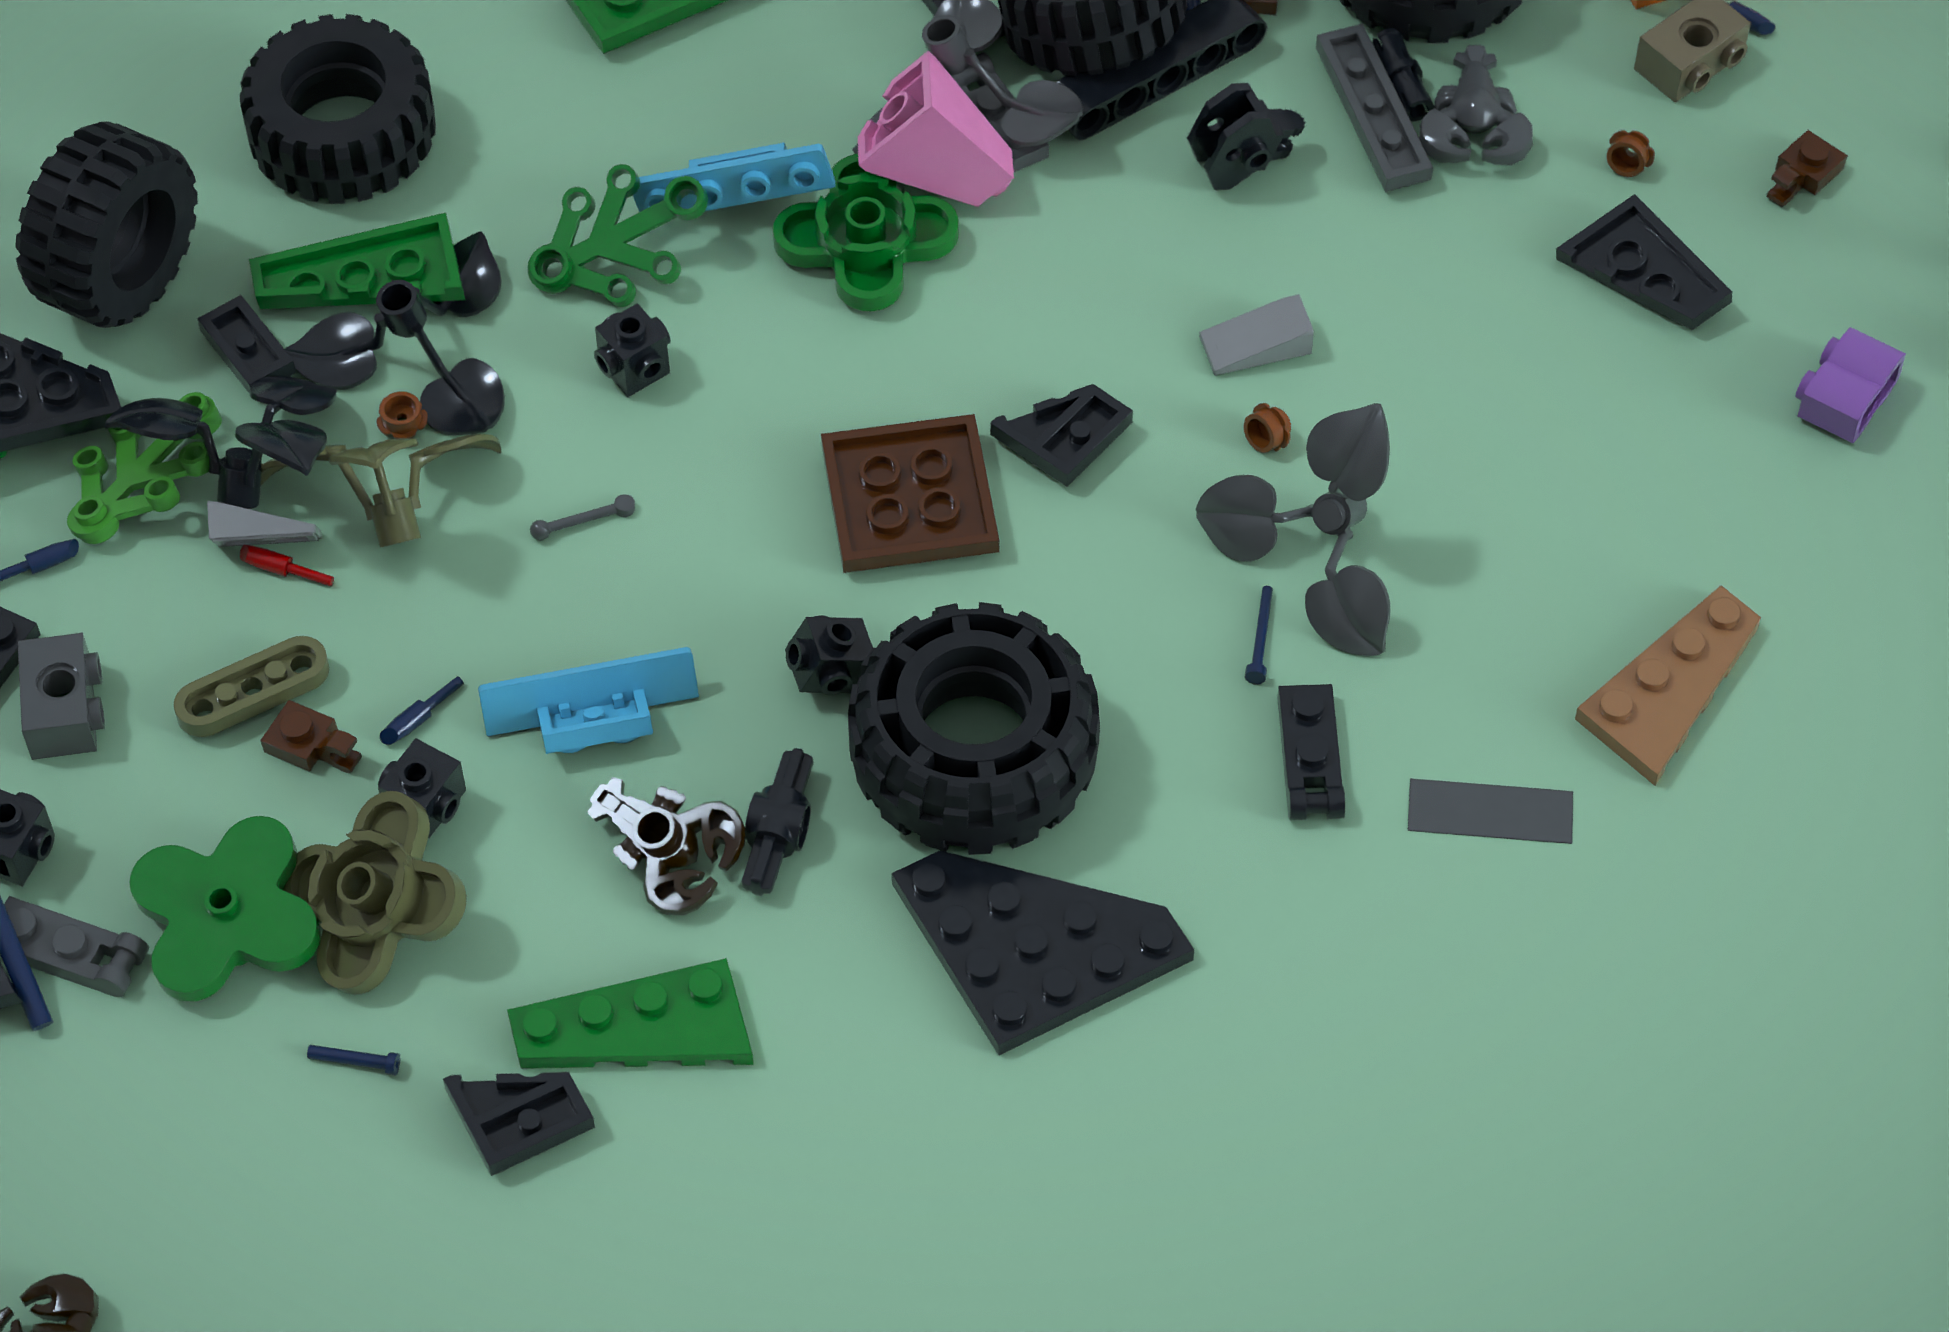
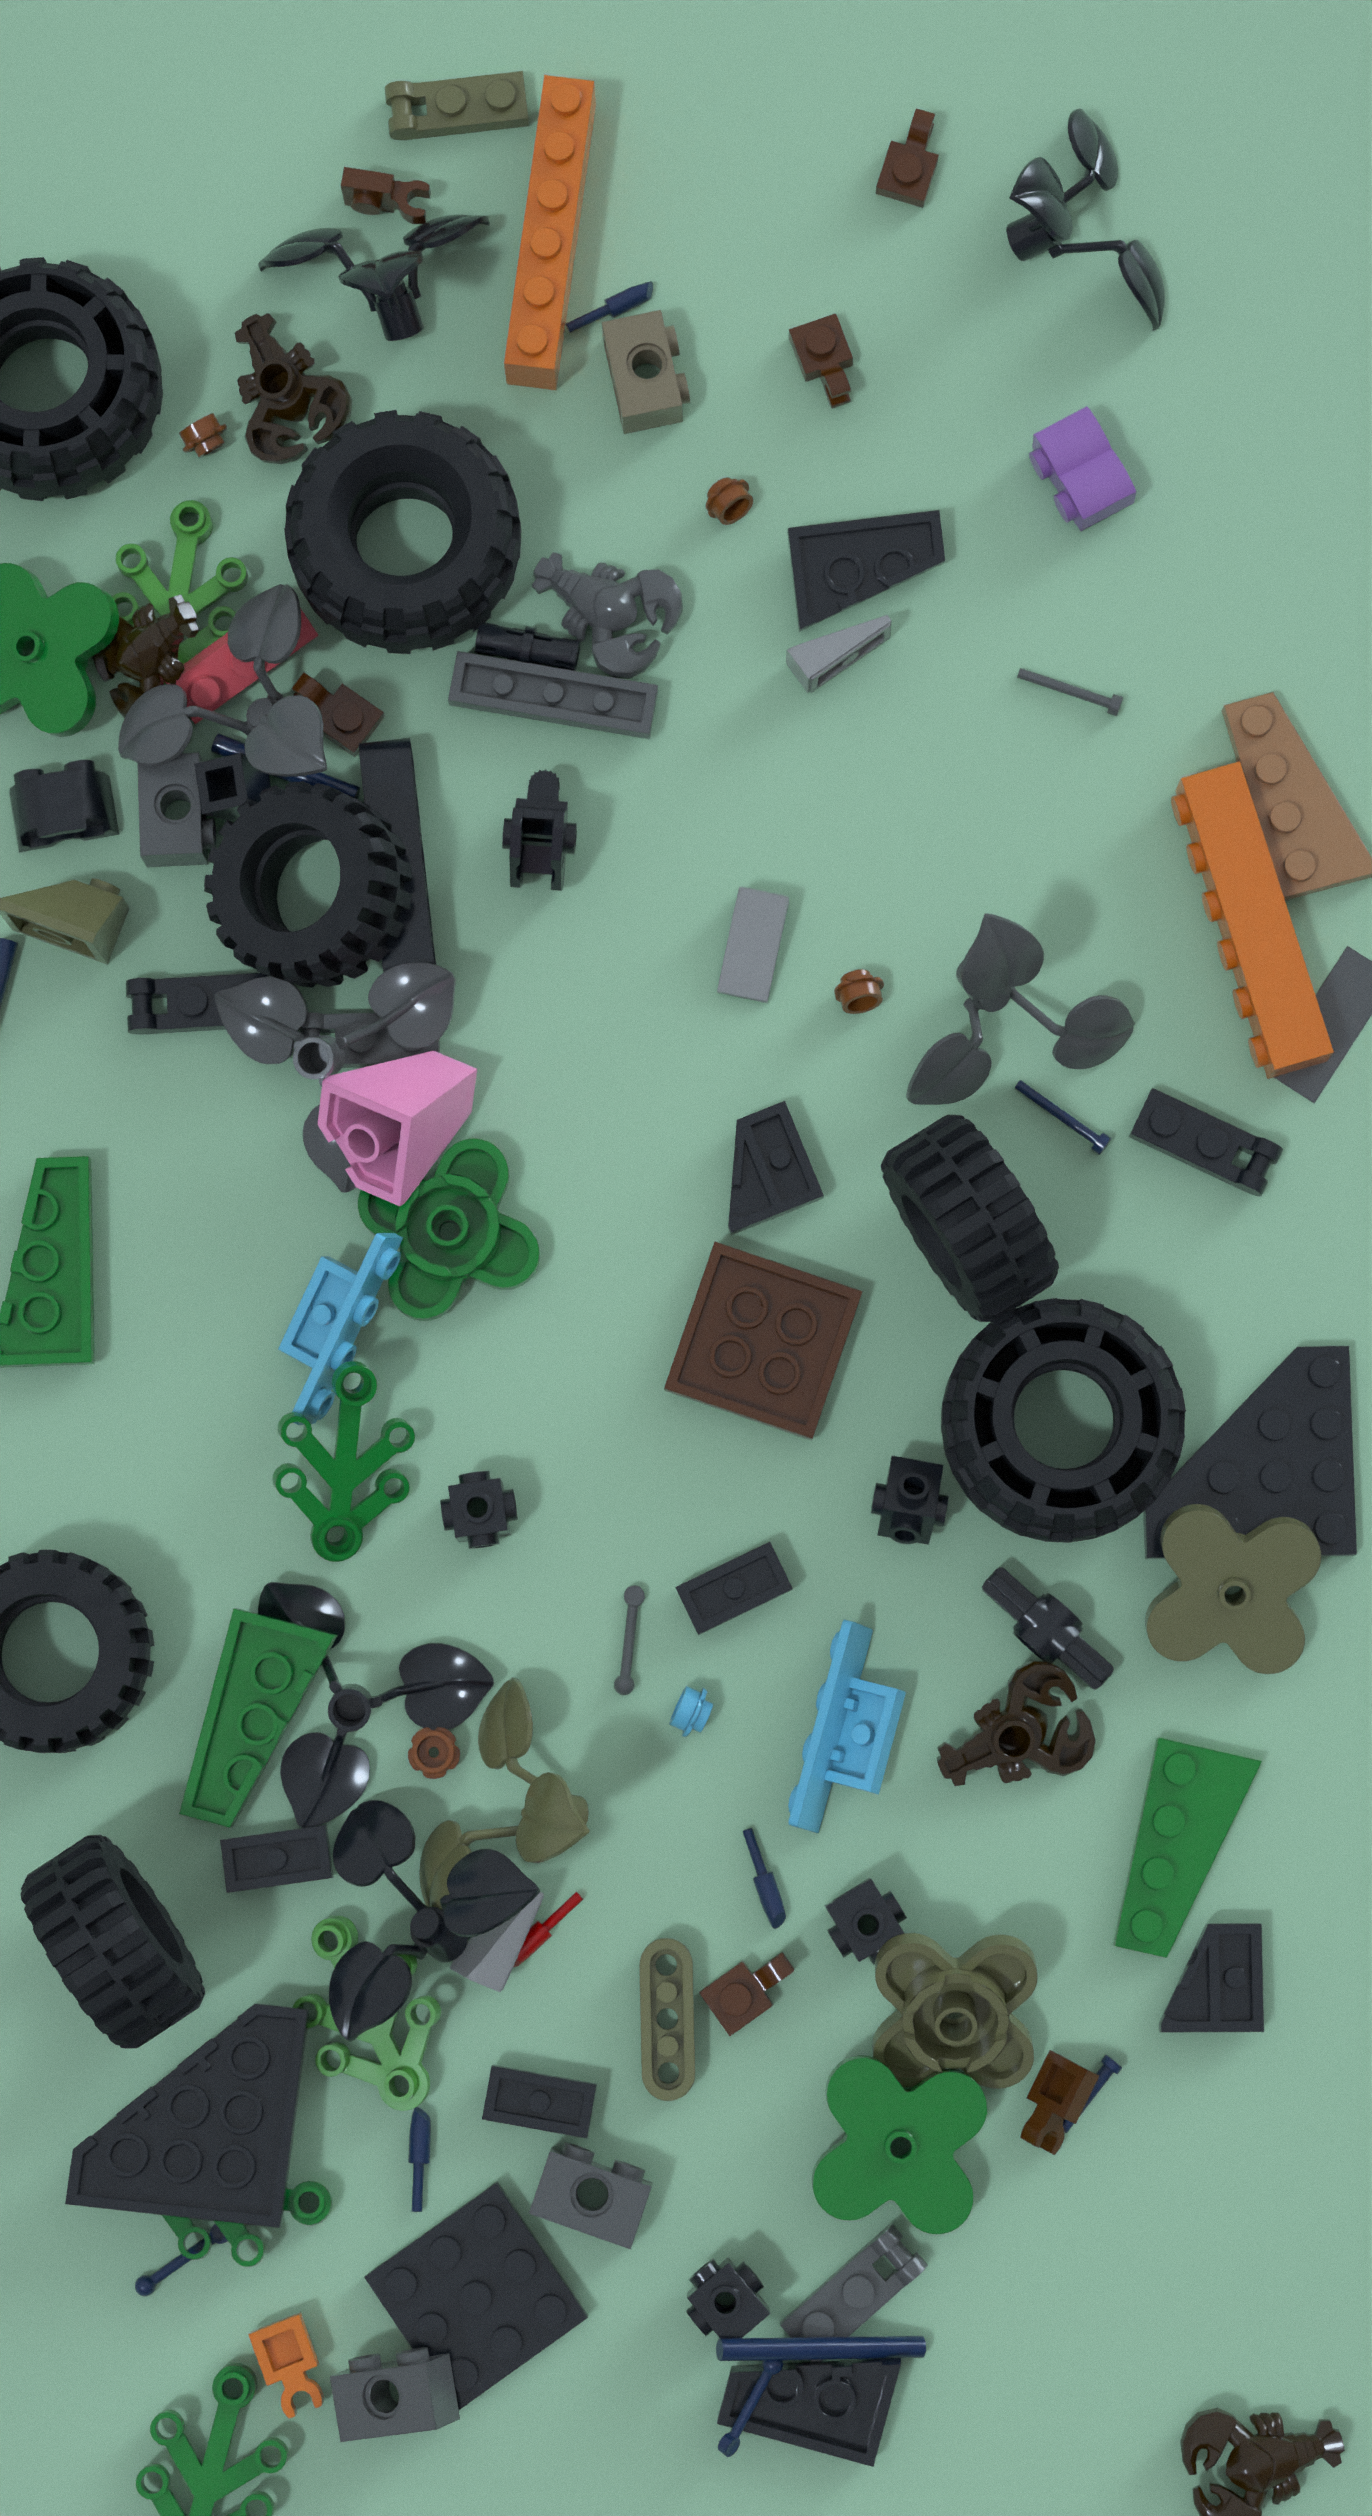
camera: 60 degrees left, 25 degrees up
(127, 623) = (539, 2101): none -> black plate
(340, 1024) = (1060, 2094): none -> reddish brown plate
(543, 583) = (691, 1711): none -> medium azure plate
(673, 567) = (734, 1588): none -> black plate
(900, 940) = (1209, 1560): none -> olive plant
(1109, 551) = (970, 1218): none -> black tyre
(1537, 692) = (1252, 919): none -> orange brick
(1556, 280) = (829, 655): none -> light grey slope
(1660, 507) = (1113, 704): none -> dark grey piece

